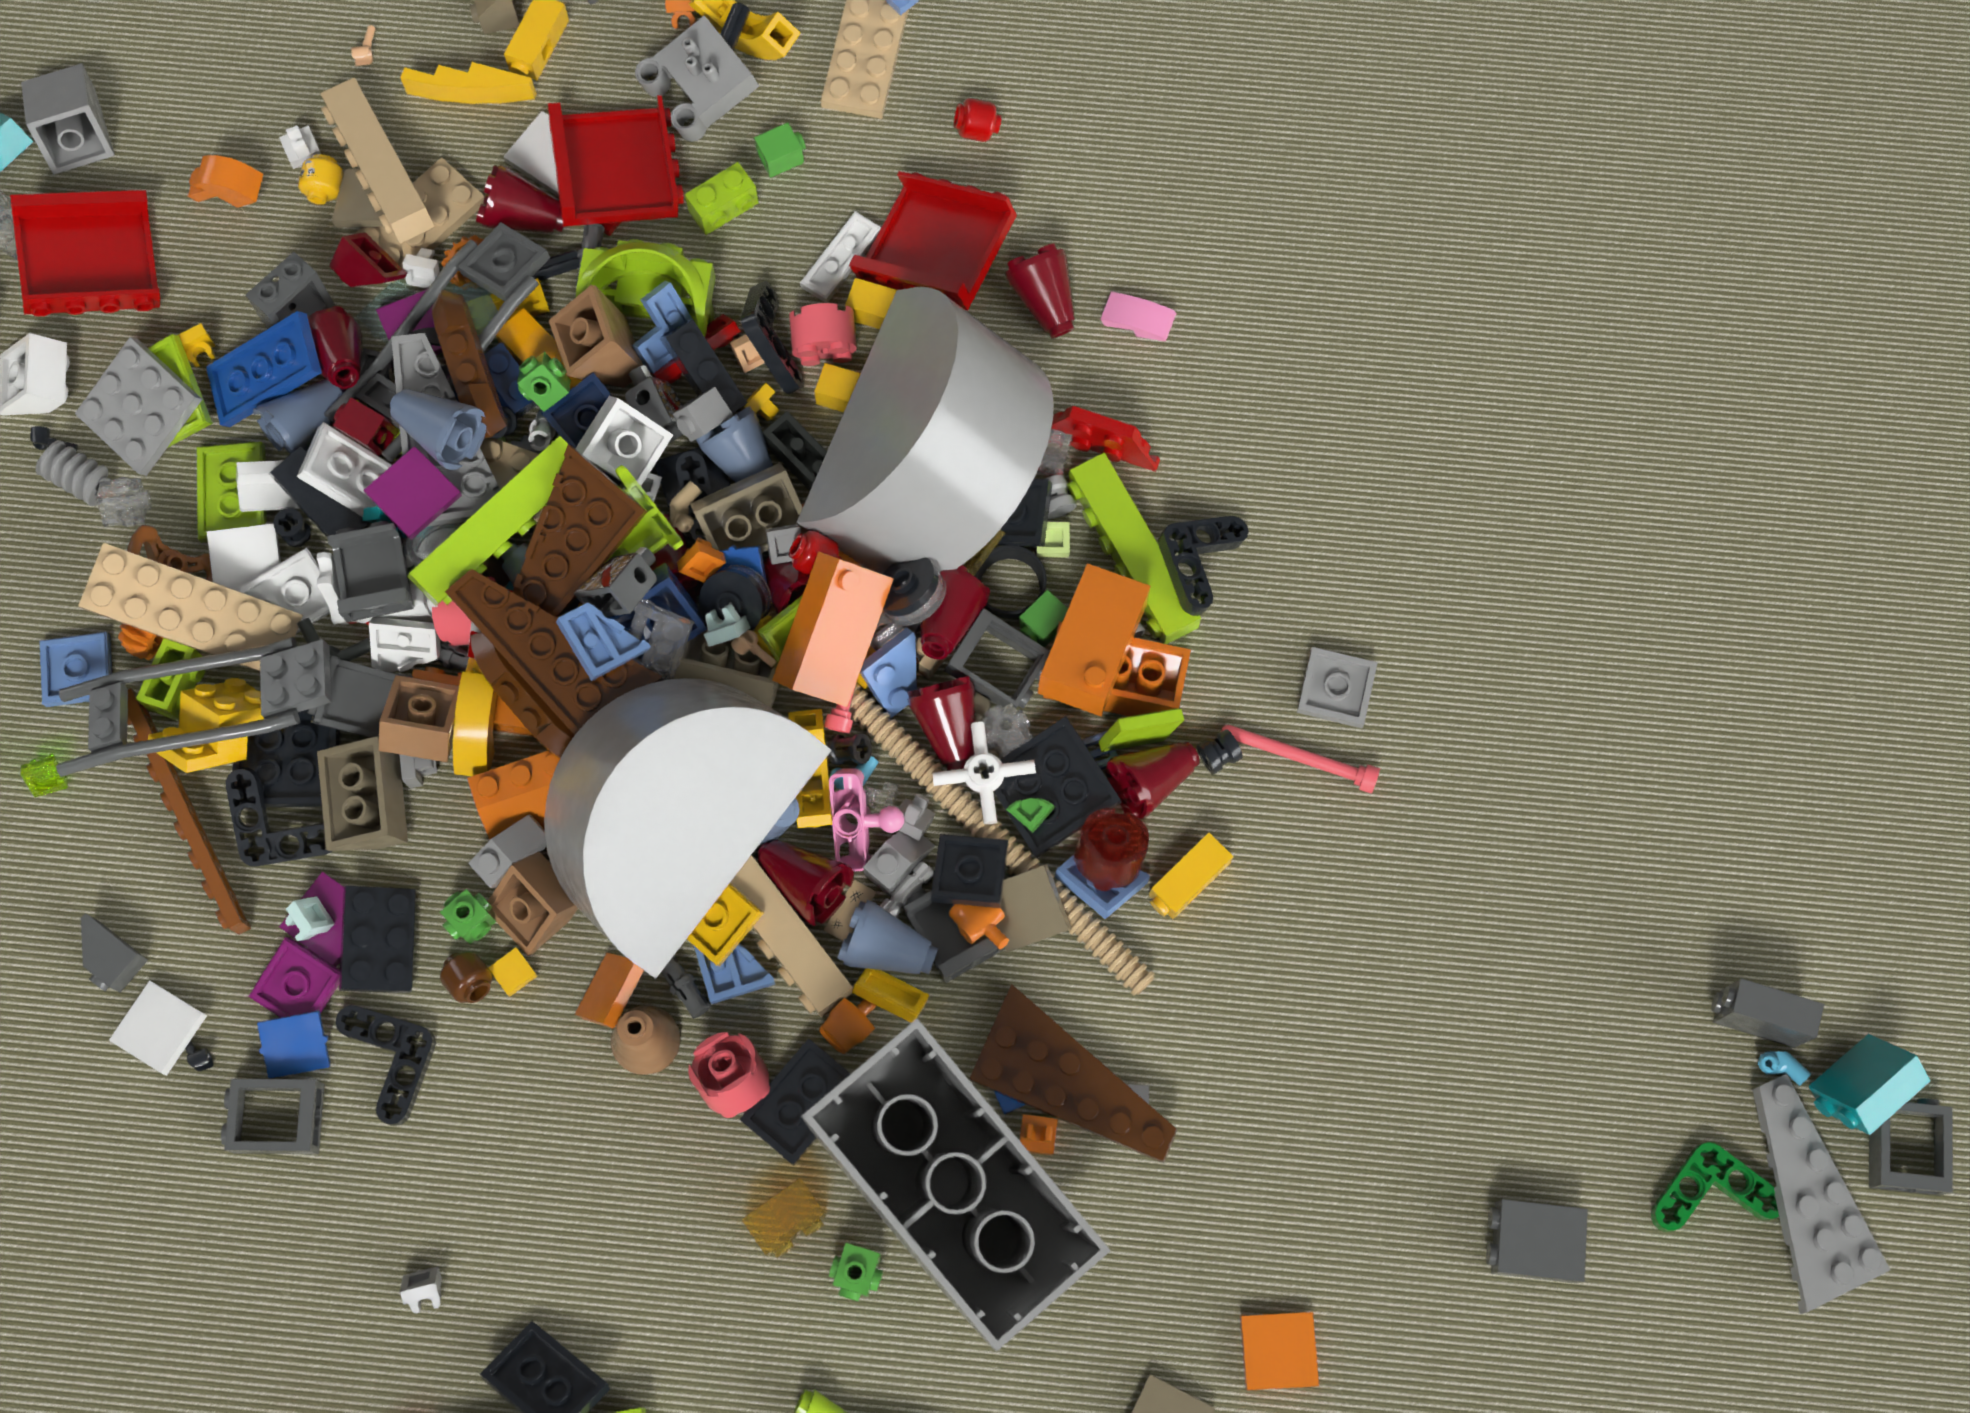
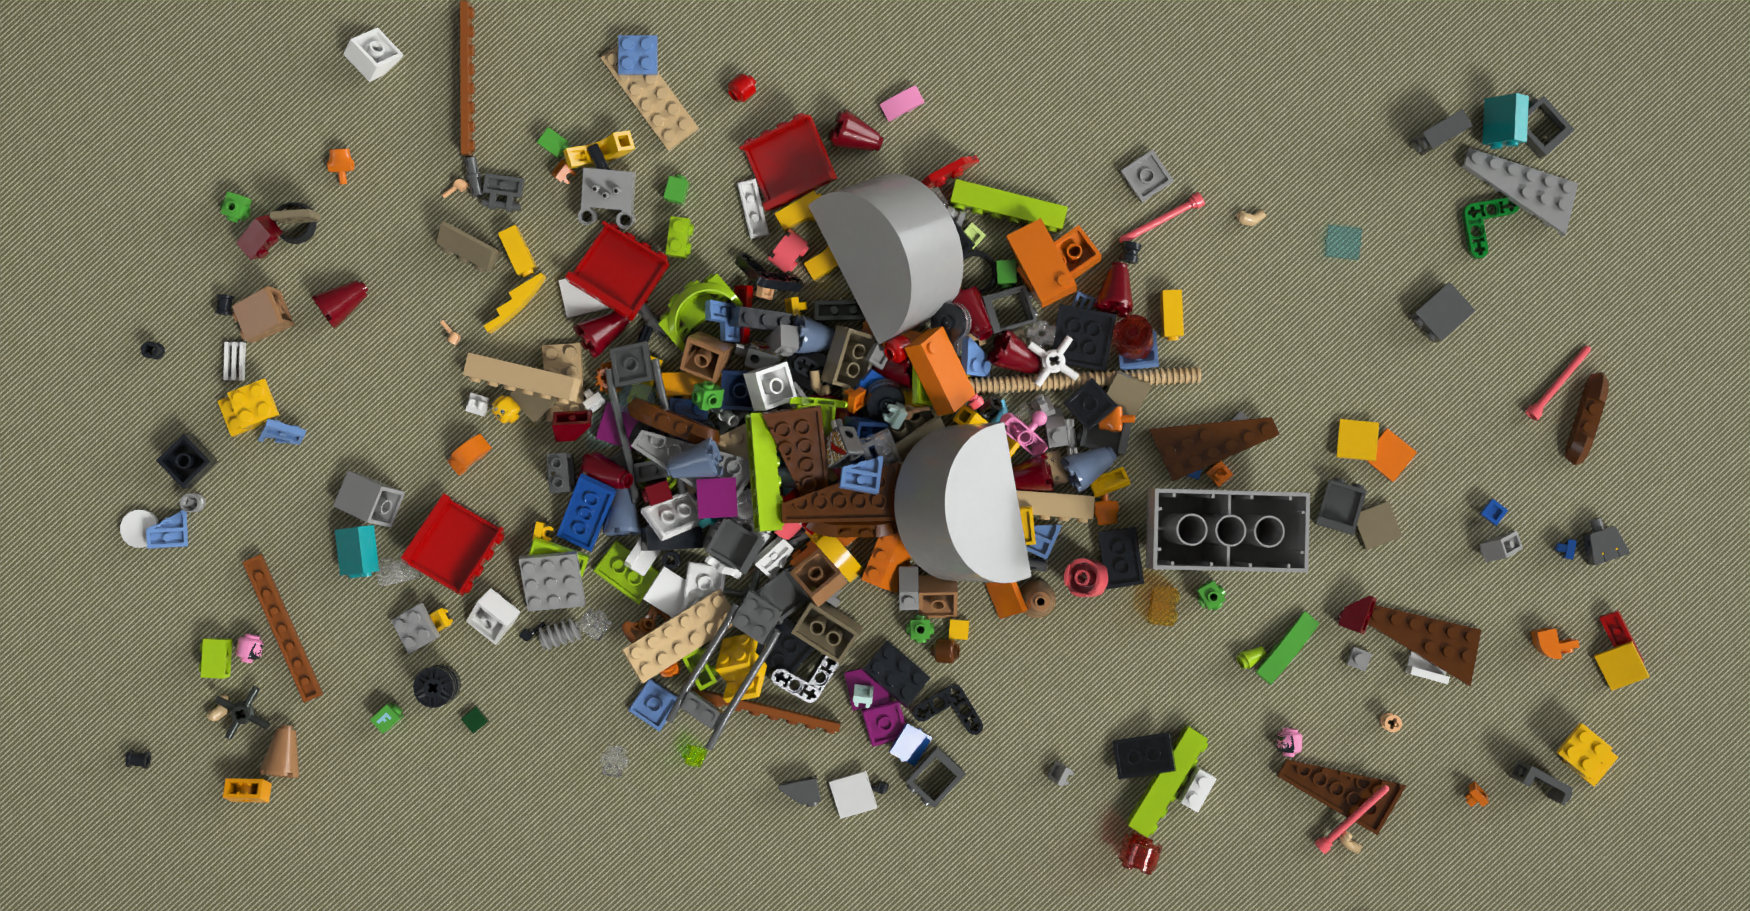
camera: 45 degrees left, 15 degrees up
(1031, 811) = (1086, 356): bright green tile -> none
(1141, 729) = (1094, 278): lime tile -> none
(1146, 1346) = (1341, 506): none -> dark grey panel
(1188, 553) = (1030, 181): black beam -> none
(1257, 1284) = (1357, 440): none -> yellow tile
(1410, 869) = (1249, 219): none -> tan arm
(1500, 1022) = (1343, 242): none -> clear light blue piece
(1783, 1063) = (1462, 145): medium azure arm -> none

